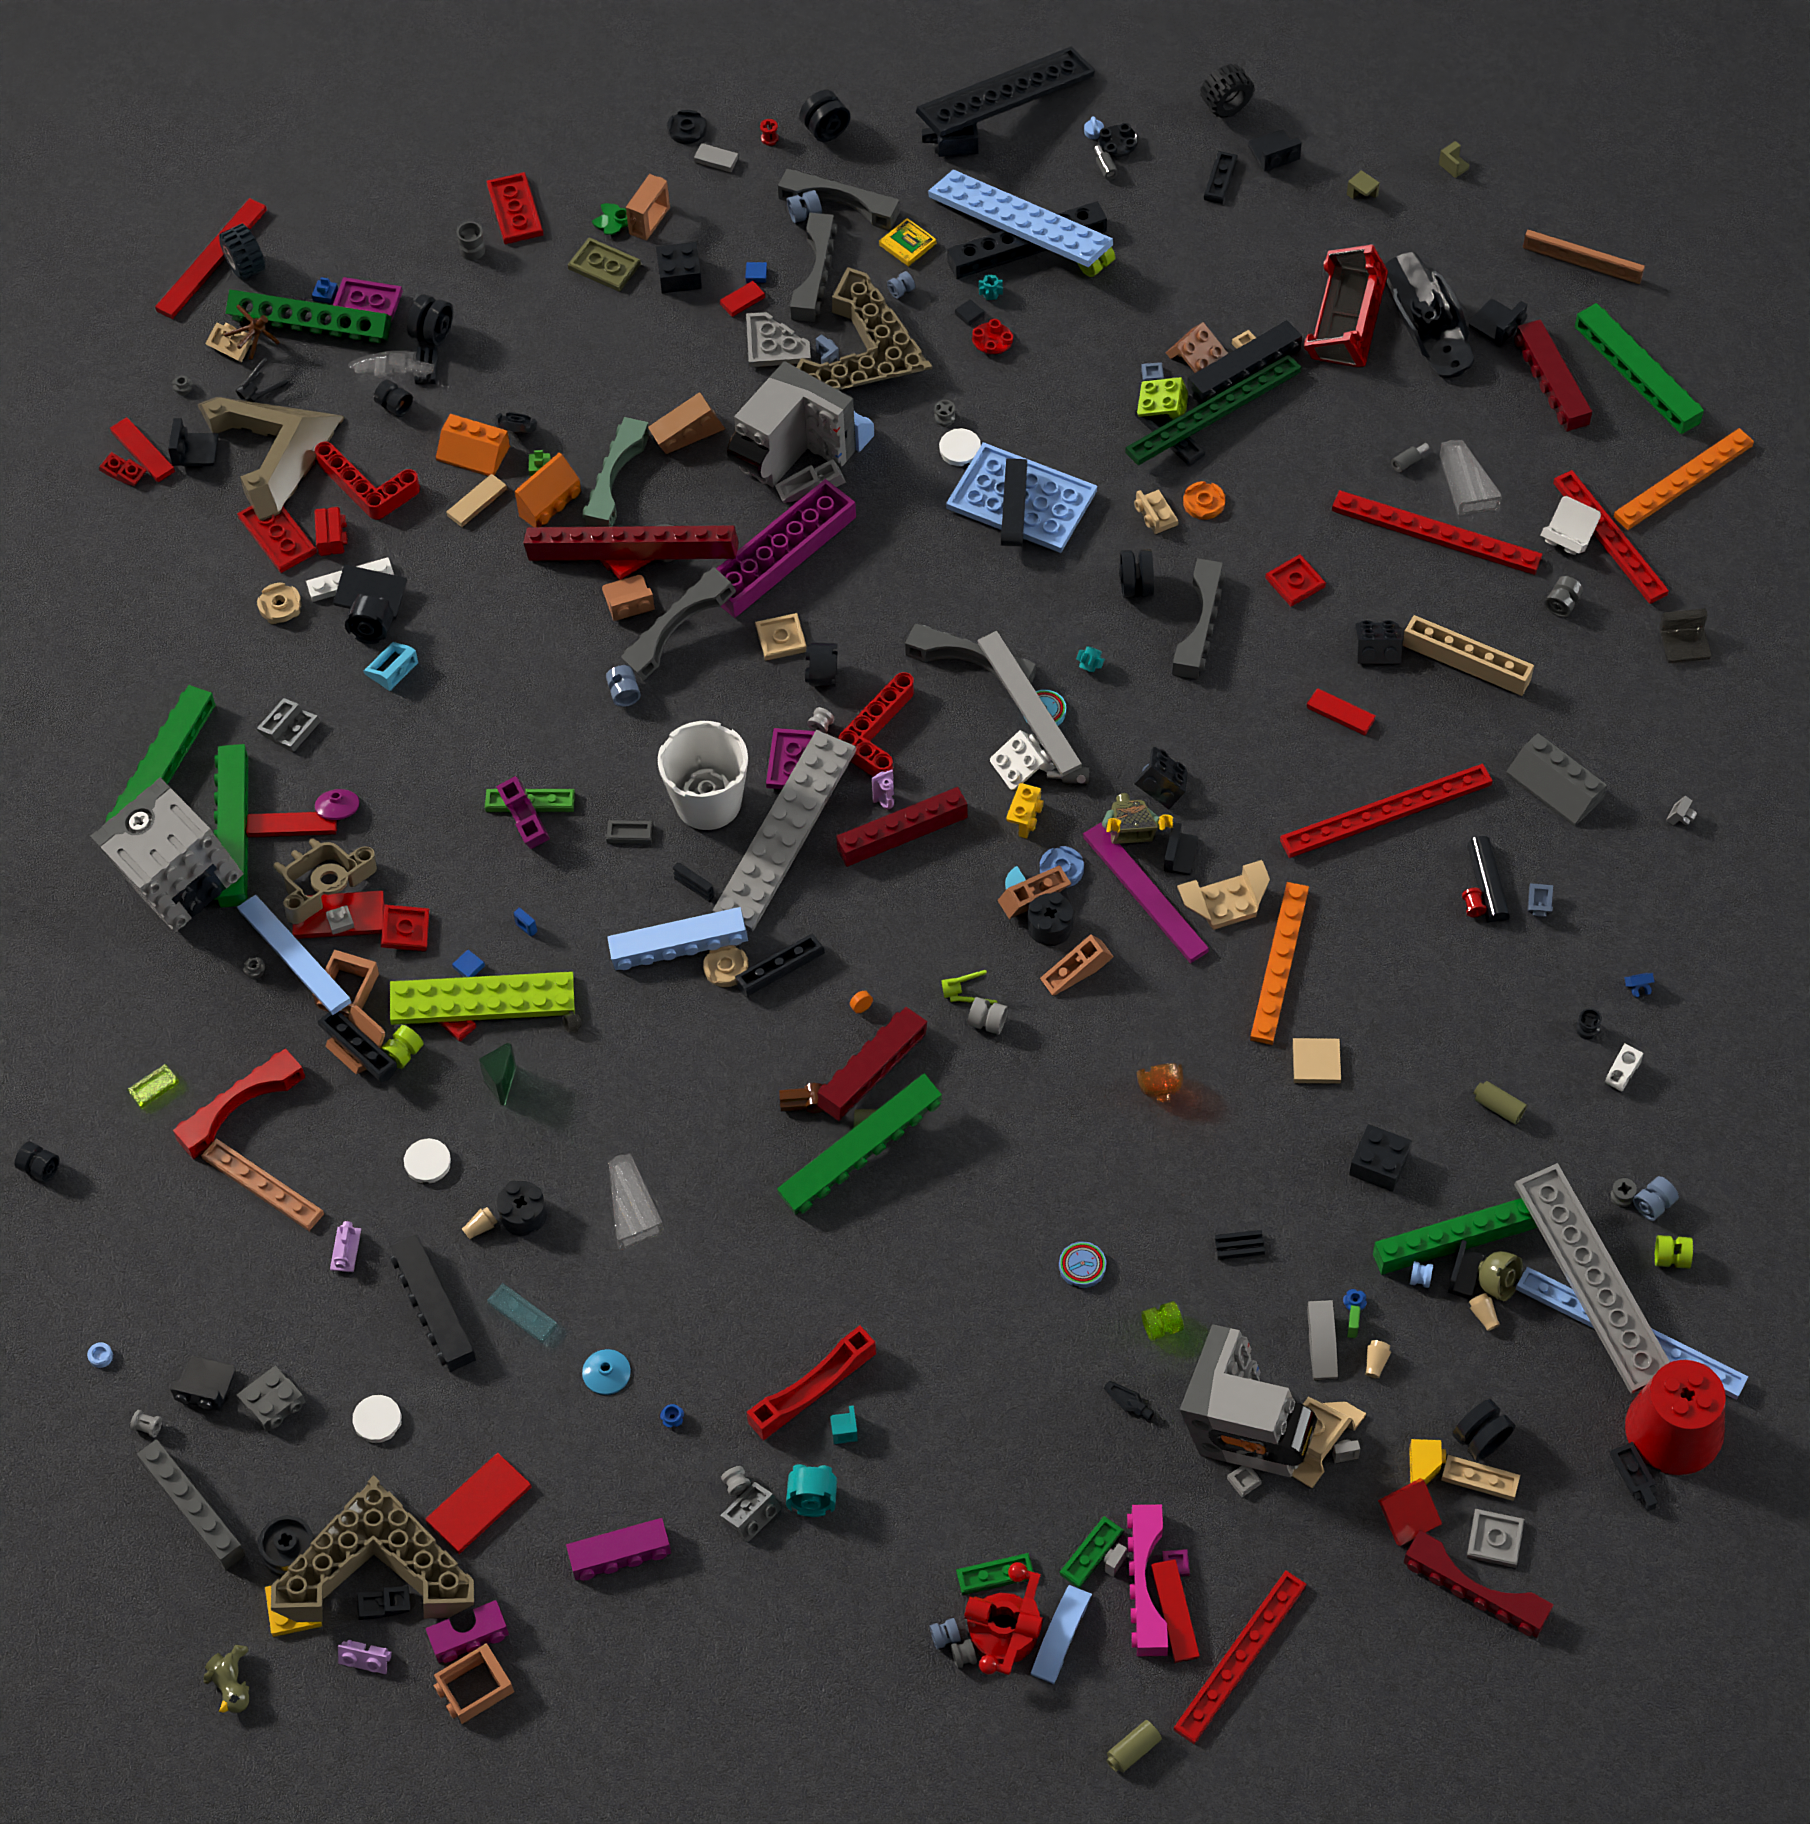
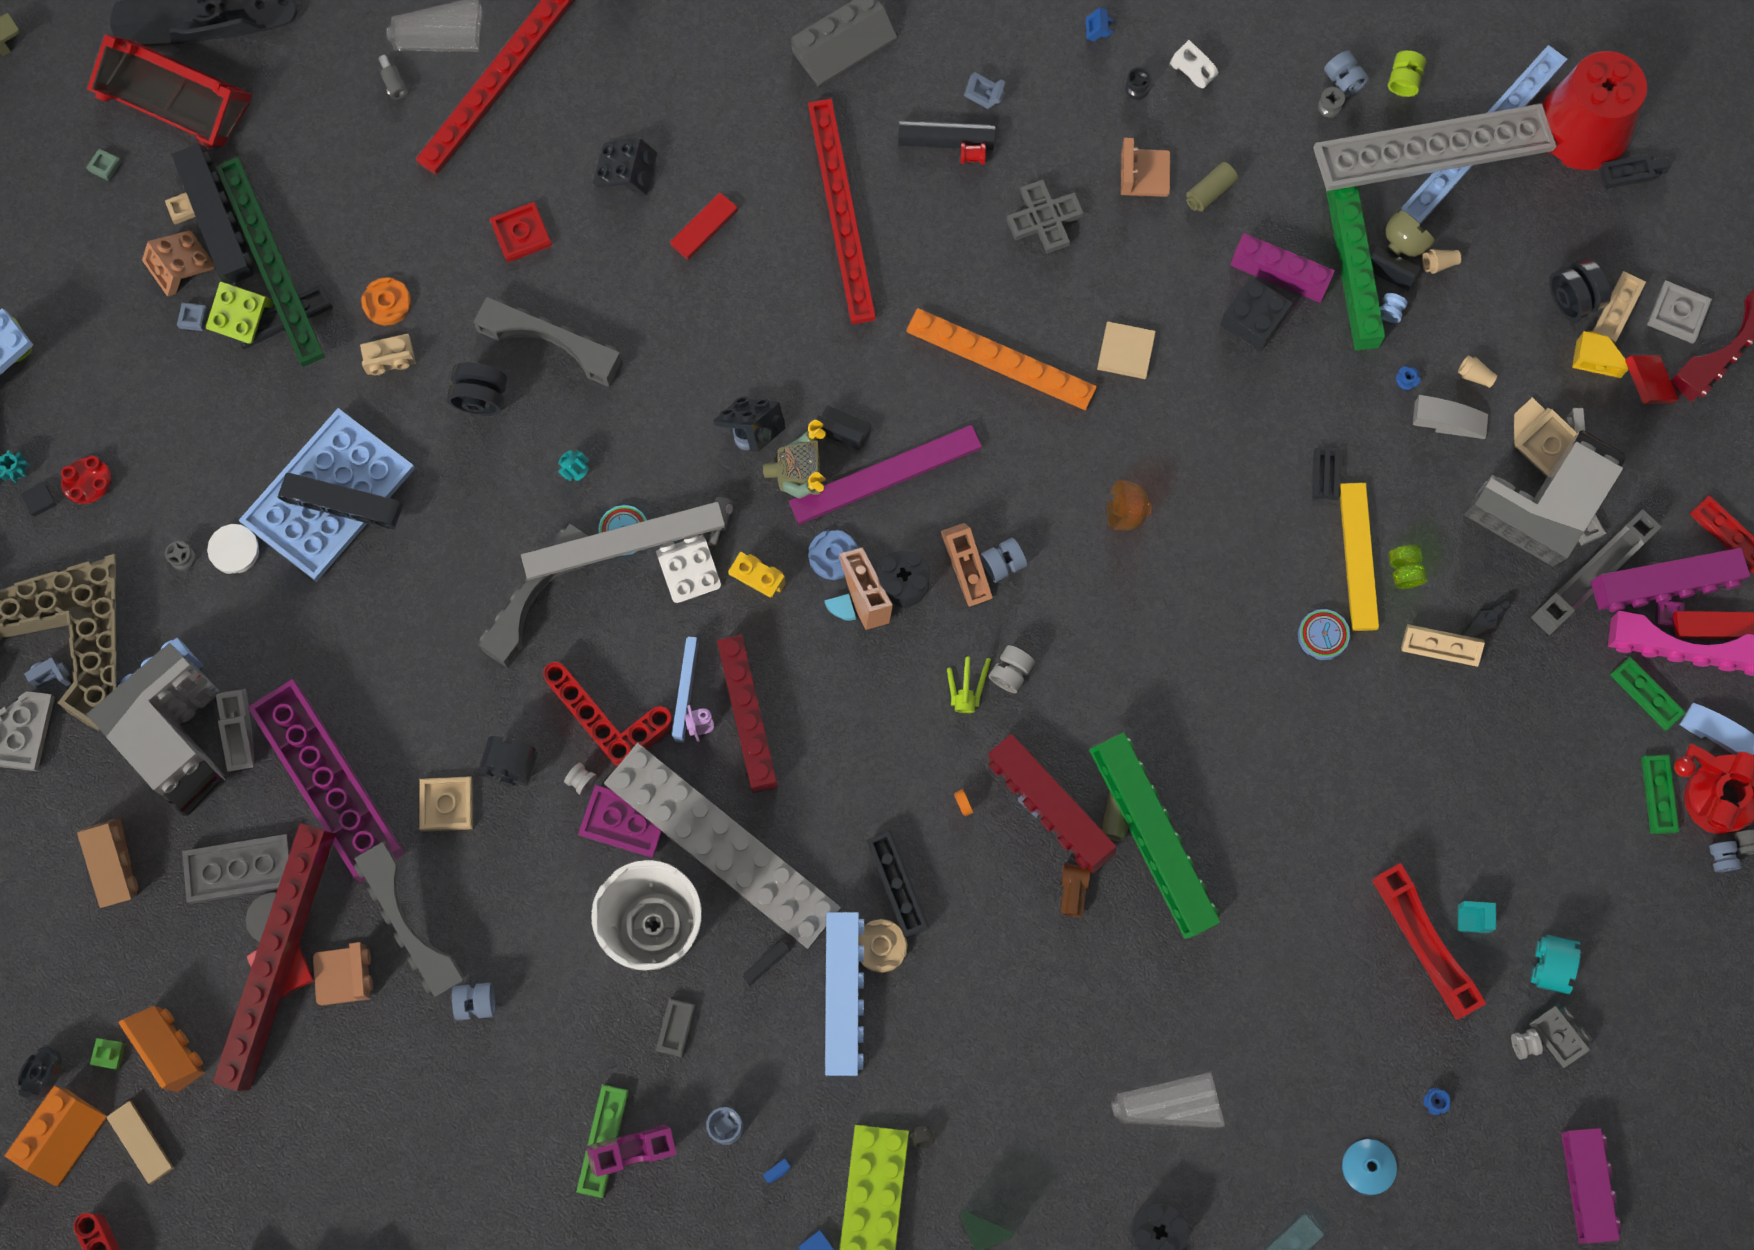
camera: 80 degrees left, 15 degrees up
(554, 876) = (724, 1126): none -> sand blue wheel
(629, 441) = (111, 935): sand green arch -> none
(695, 501) = (235, 868): none -> flat silver plate
(923, 778) = (685, 689): none -> light blue tile
(1086, 992) = (995, 563): none -> sand blue wheel
(1094, 1362) = (1442, 645): none -> tan plate
(1114, 1559) = (1664, 670): light grey plate -> none
(1165, 1283) = (1358, 557): none -> yellow tile
(1206, 1550) = (1670, 579): none -> magenta brick
(1227, 1504) = (1607, 560): none -> dark grey arch
(1229, 899) = (913, 388): tan piece -> none
(1269, 283) = (104, 164): none -> sand green tile
(1353, 1324) = (1435, 383): bright green tile -> none
(1429, 971) = (1044, 216): none -> dark grey plate
(1433, 1173) = (1282, 267): none -> magenta brick
(1468, 655) = (671, 81): tan brick -> none
(1499, 1041) = (1144, 171): none -> nougat bracket

